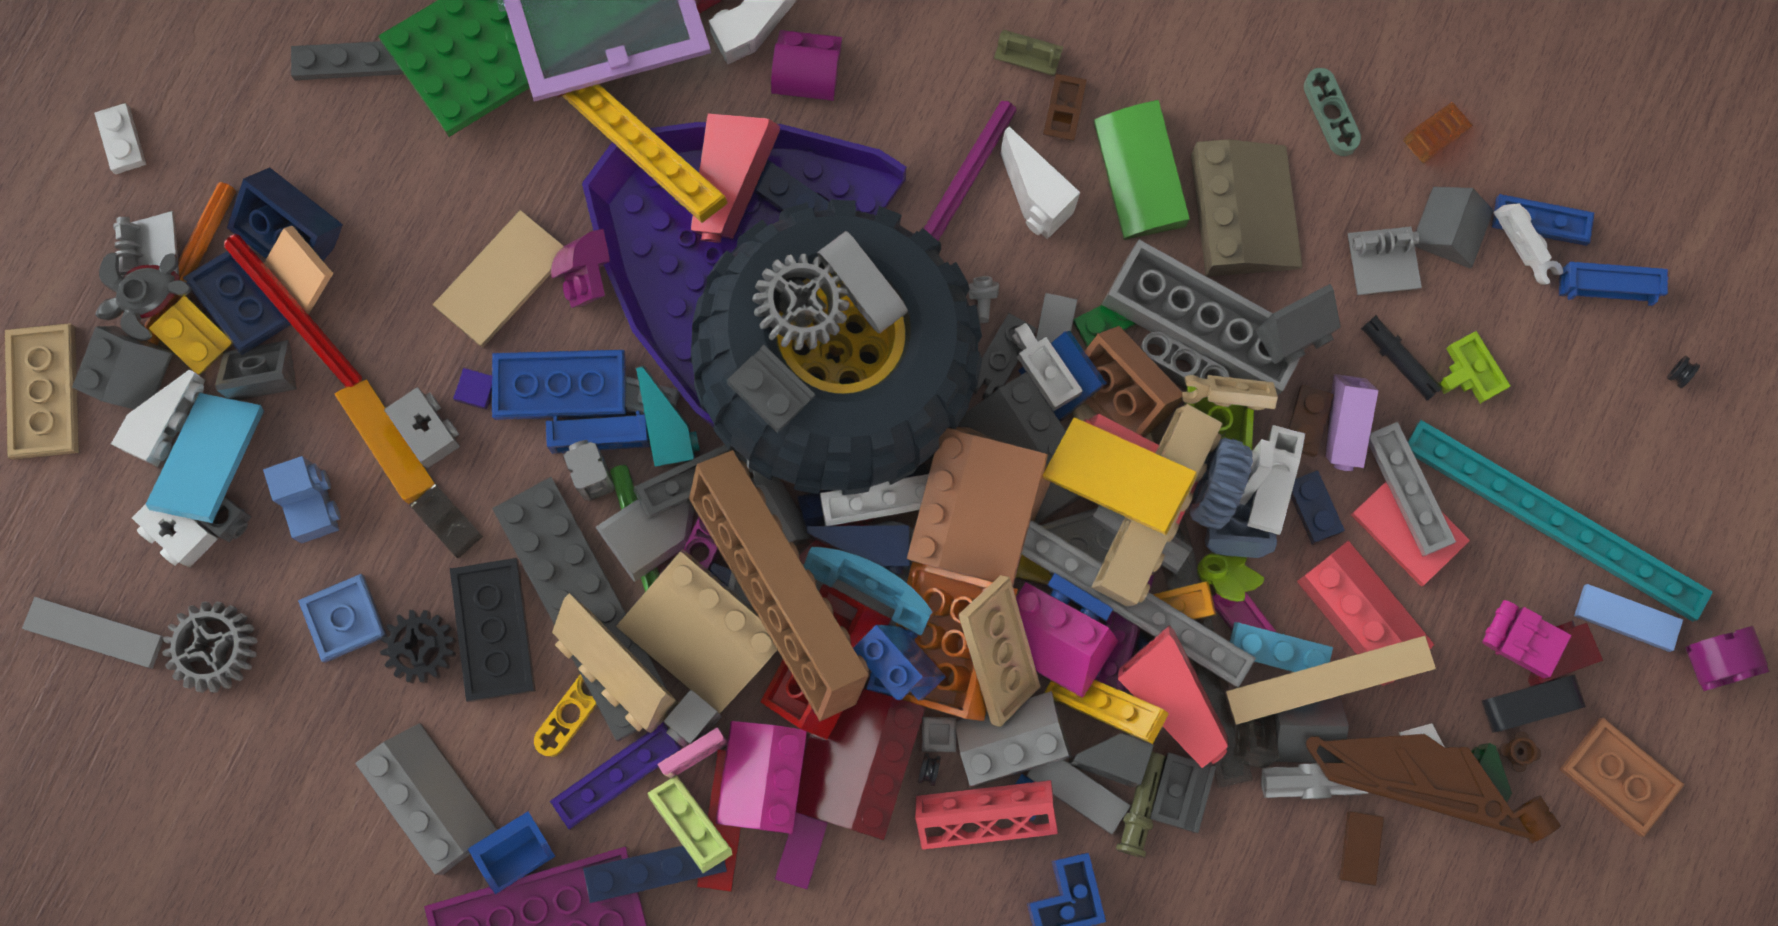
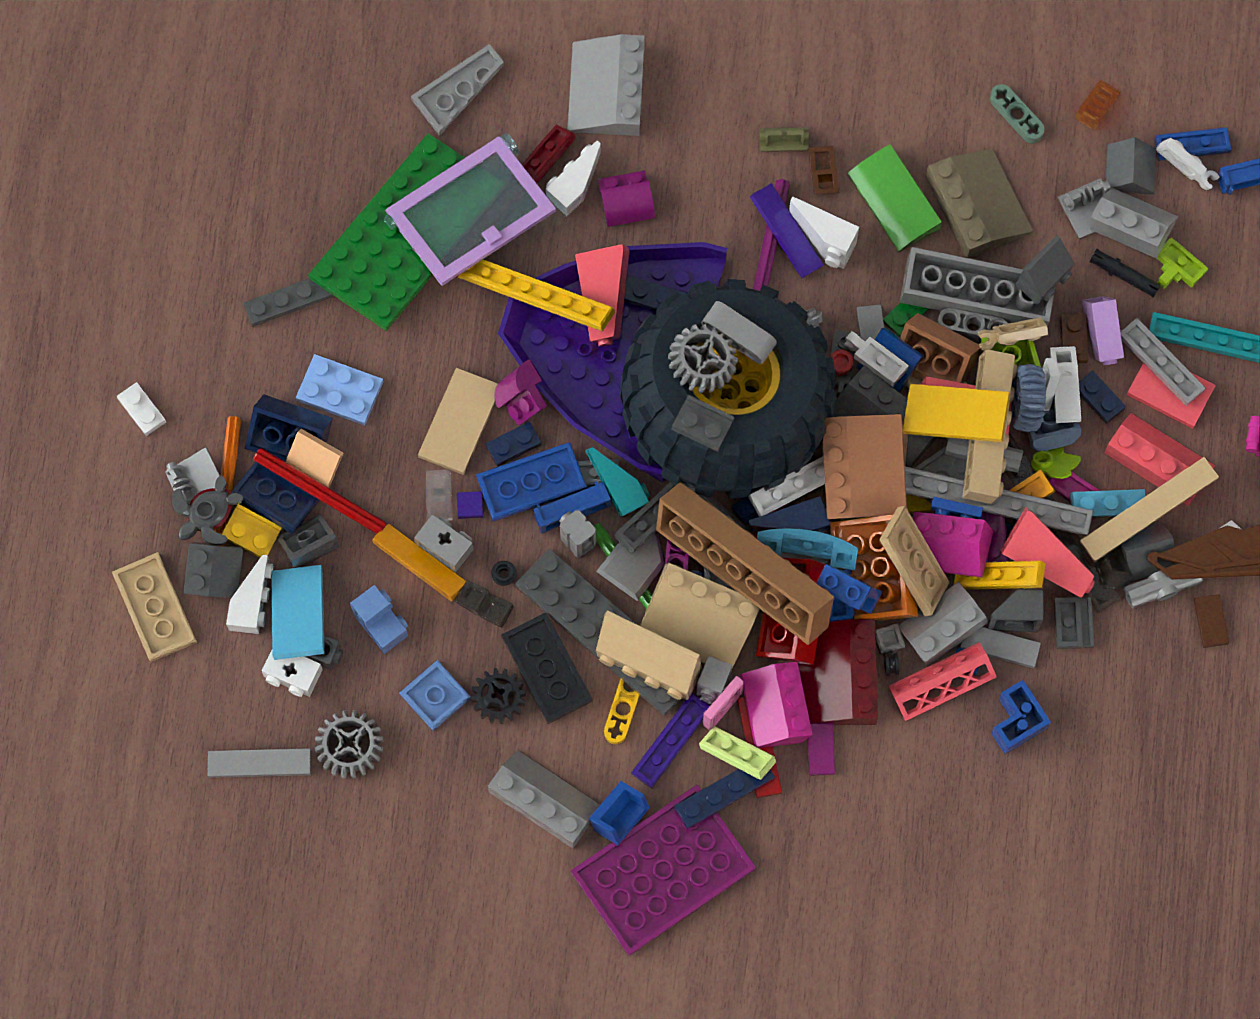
camera: 15 degrees left, 5 degrees down
(369, 191) = (339, 389): none -> light blue plate
(441, 363) = (439, 494): none -> clear slope
(480, 480) = (498, 567): none -> black plate
(556, 329) = (513, 444): none -> dark blue plate
(990, 168) = (786, 231): none -> dark purple tile
(1000, 357) = (842, 361): none -> red tile
(1138, 820) = (1050, 651): olive pin -> none
(1433, 296) = (1132, 222): none -> light grey slope

